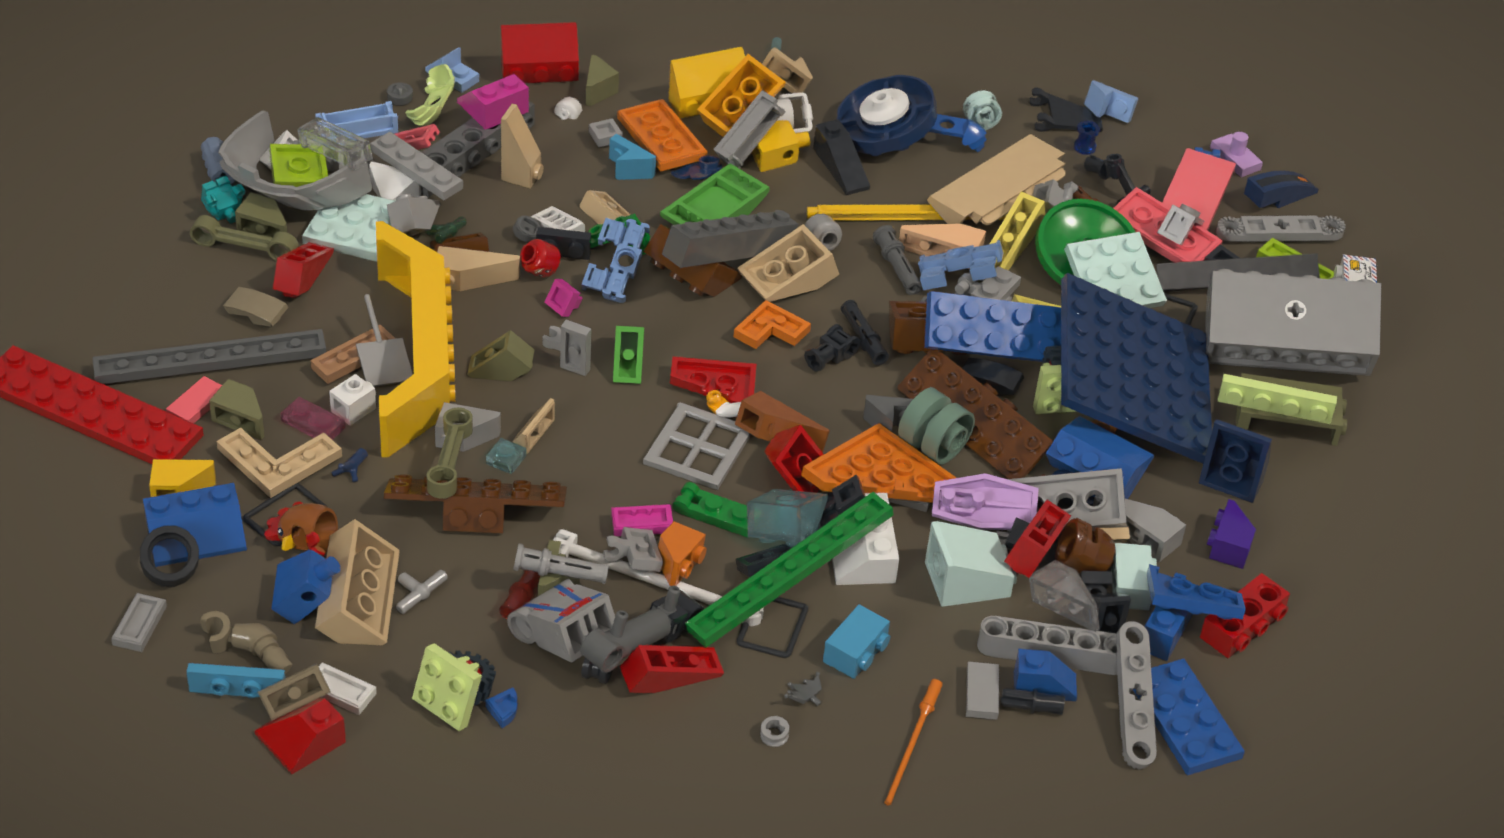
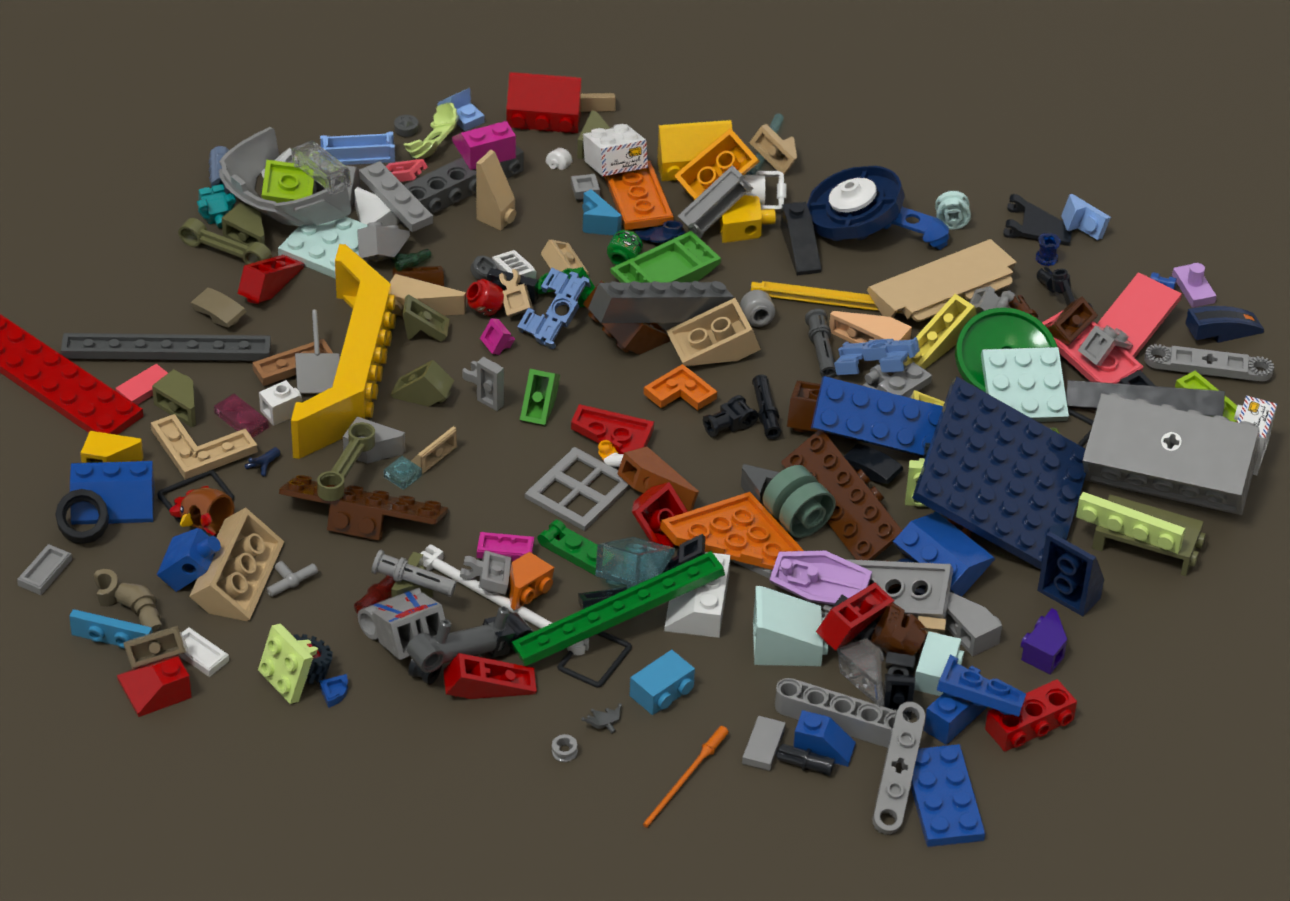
camera: 15 degrees right, 0 degrees up
(482, 288) = (421, 317): none -> olive slope
(572, 254) = (516, 296): none -> tan plate
(593, 46) = (598, 102): none -> tan slope
(628, 91) = (615, 150): none -> white brick
(667, 188) = (624, 246): none -> green head
(1141, 203) = (1072, 321): none -> reddish brown slope

